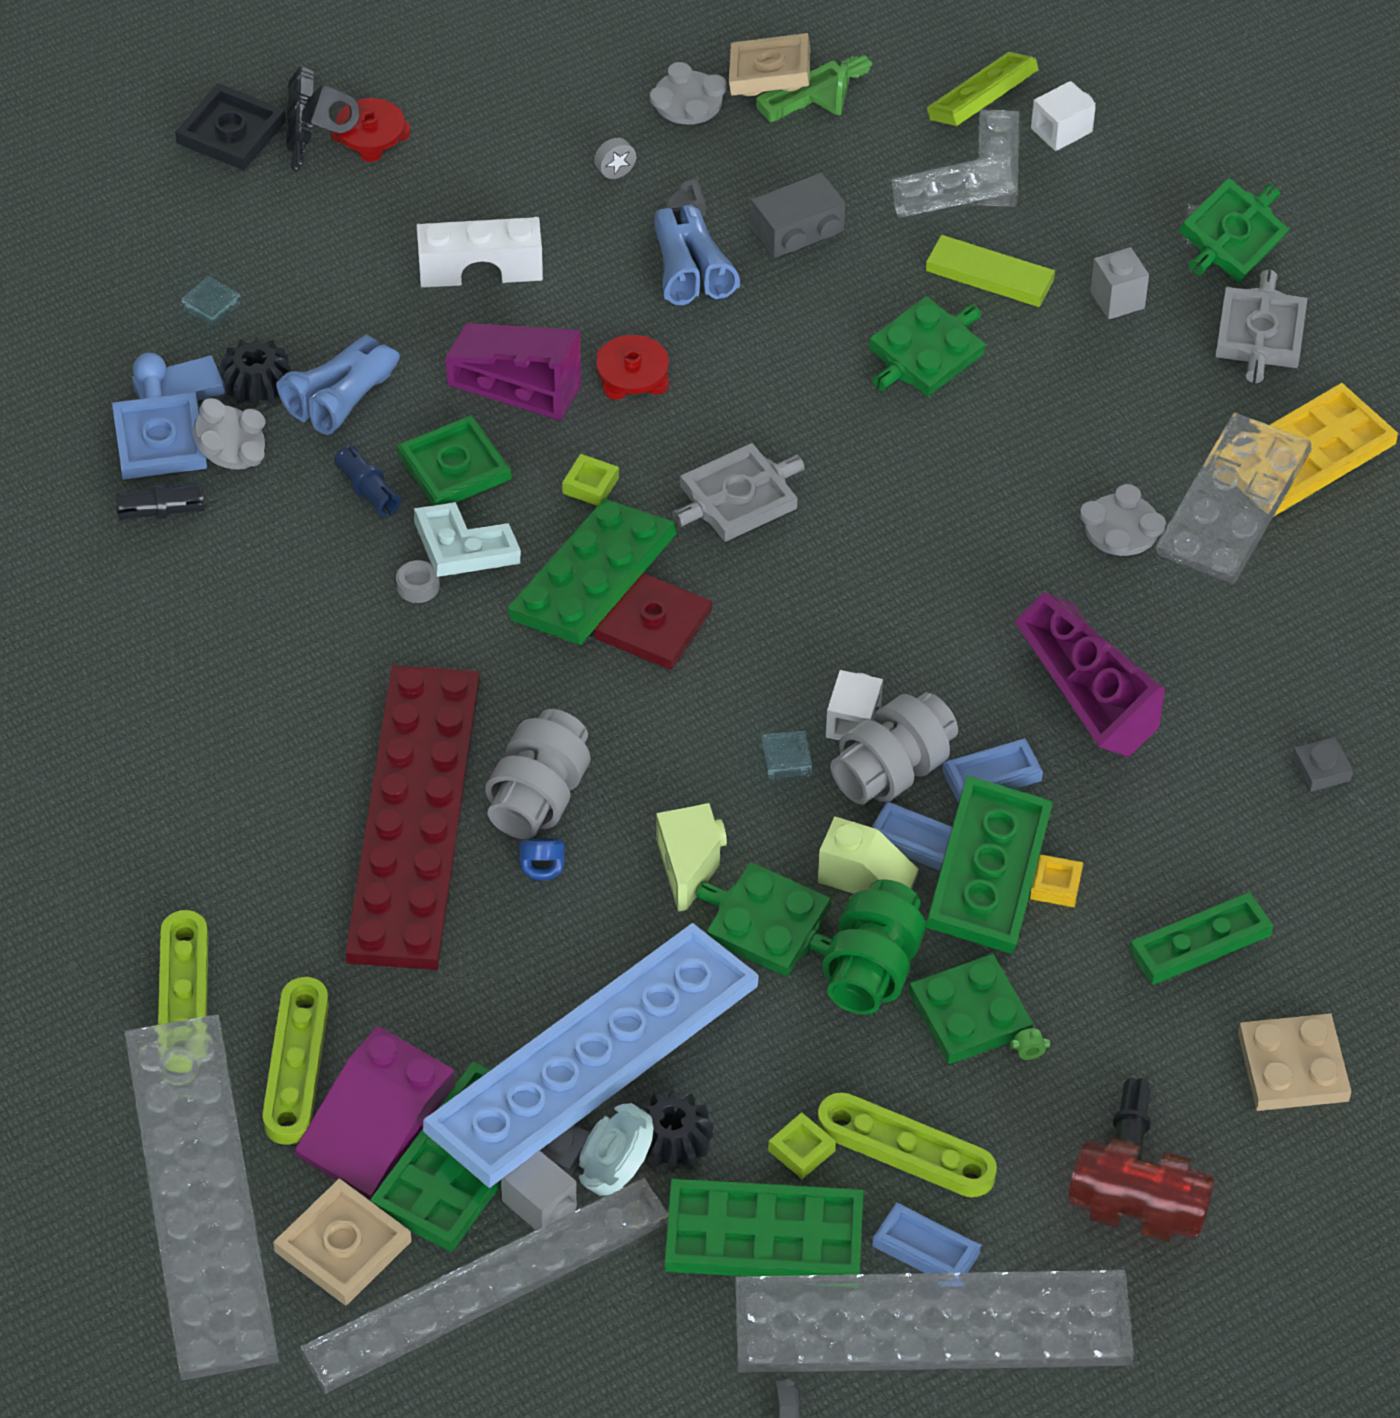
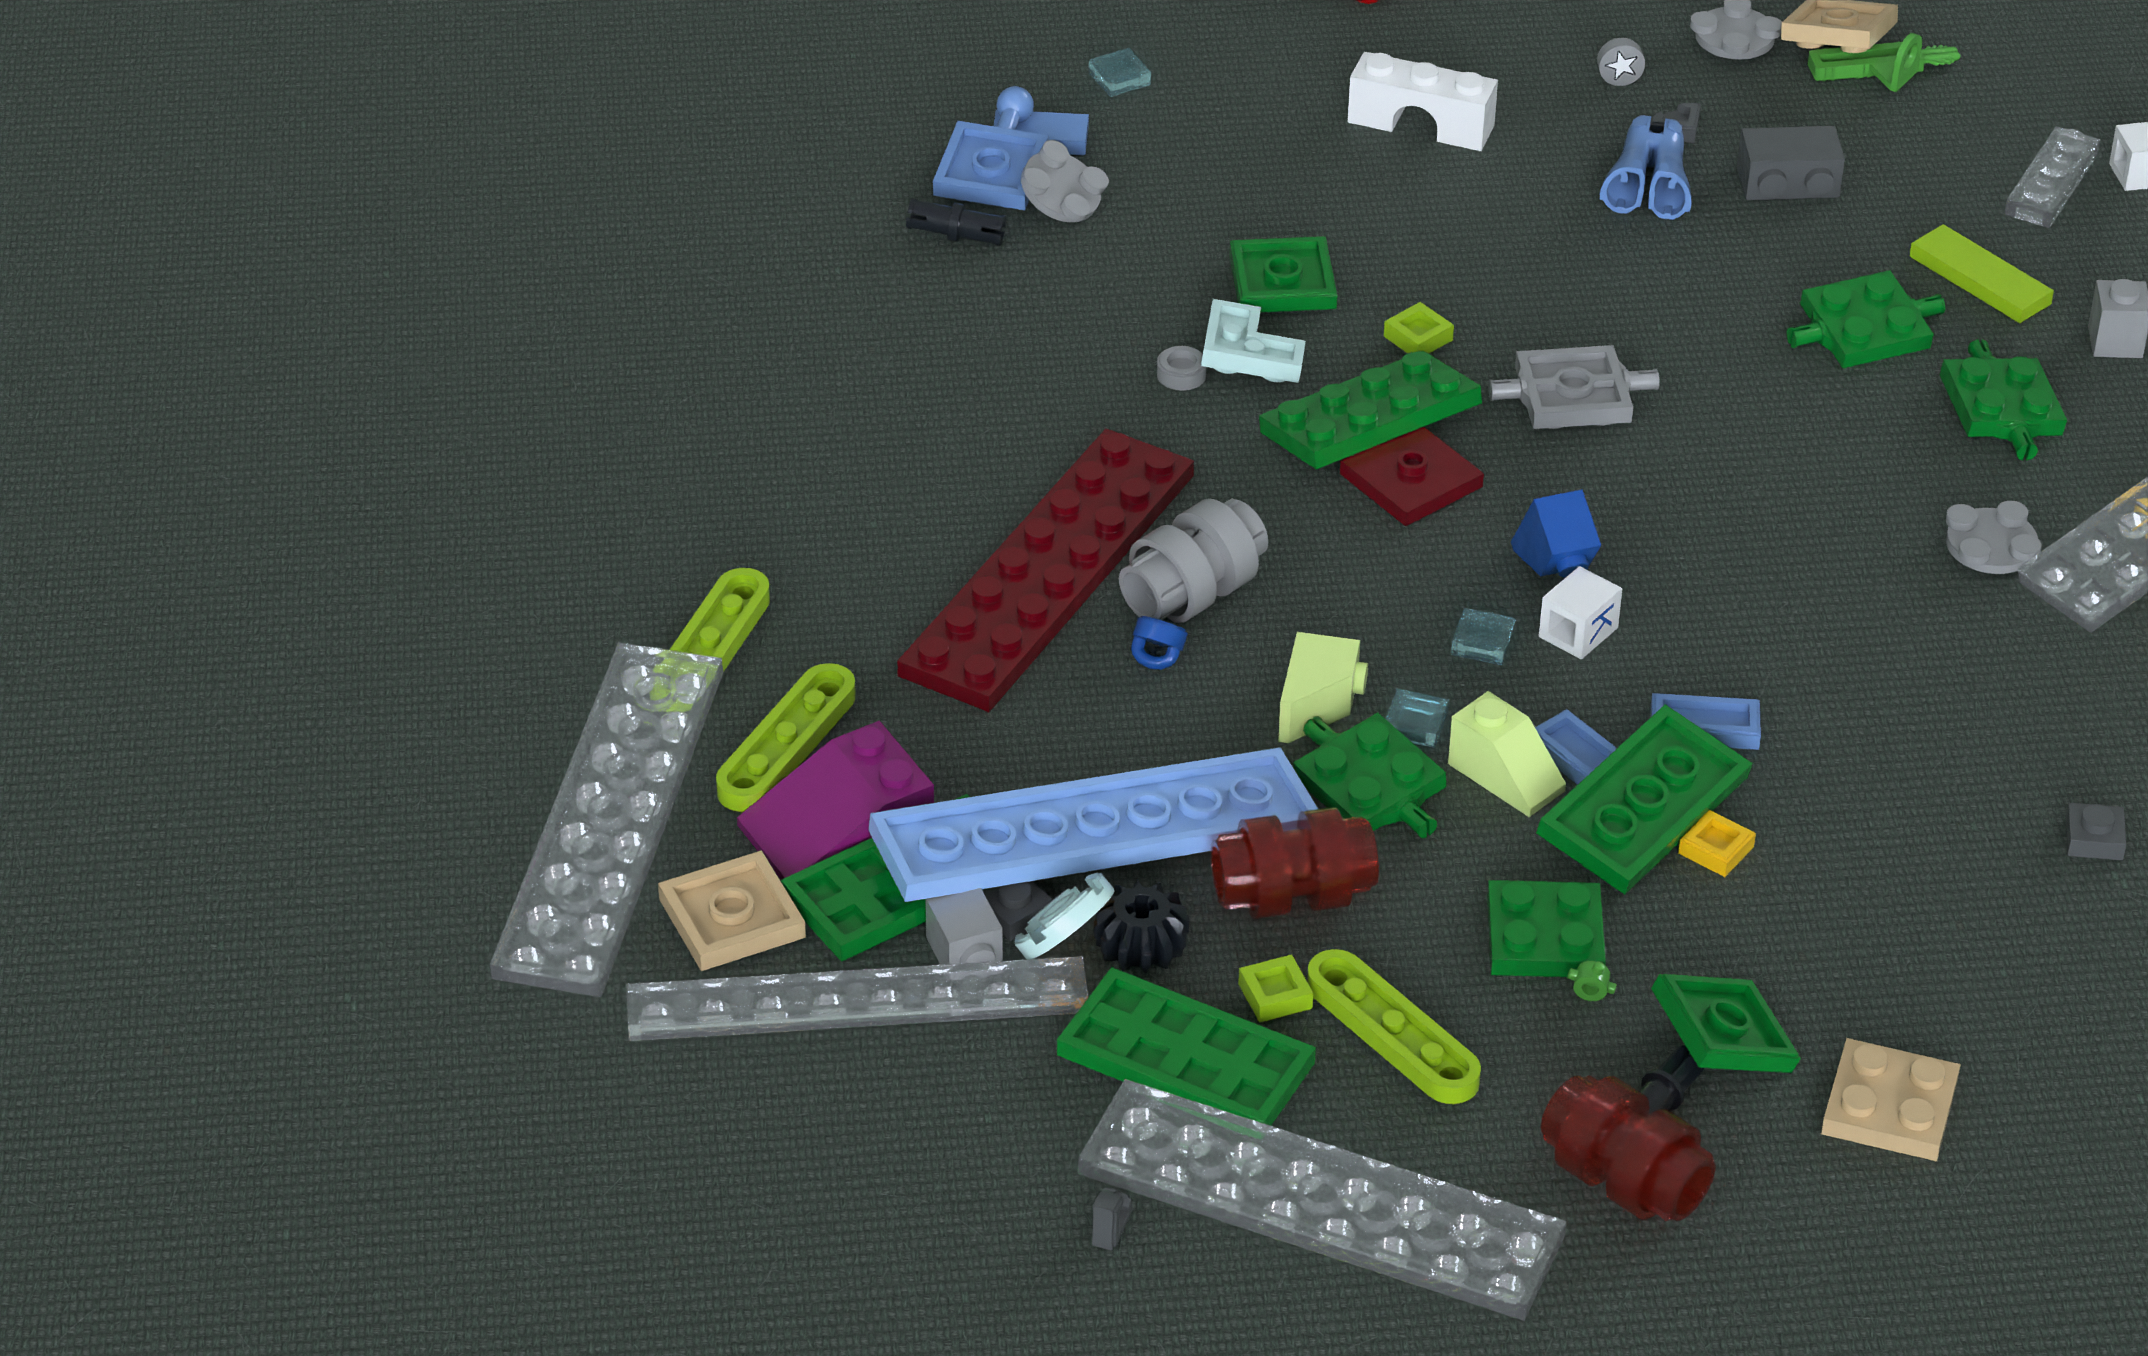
camera: 25 degrees right, 10 degrees down
(253, 371) = (1123, 139): black gear -> none
(337, 386) = (1194, 176): medium blue piece -> none
(367, 481) = (1181, 265): dark blue pin -> none
(518, 366) = (1401, 208): magenta wedge -> none
(632, 366) = (1528, 247): red piece -> none
(776, 850) = (1418, 716): none -> clear light blue tile
(781, 1020) = (1318, 860): none -> clear red piece
(809, 649) = (1557, 534): none -> blue slope
(874, 947) = (1462, 826): green piece -> none
(886, 753) = (1620, 651): light grey piece -> none
(924, 1243) = (1359, 1124): medium blue tile -> none
(953, 185) = (1982, 181): clear plate -> none
(982, 88) = (2070, 108): lime tile -> none
(1064, 386) = (2003, 398): none -> green plate
(1101, 684) = (1865, 662): magenta wedge -> none
(1150, 1046) = (1725, 1023): none -> green plate
(1200, 938) = (1849, 945): green plate -> none

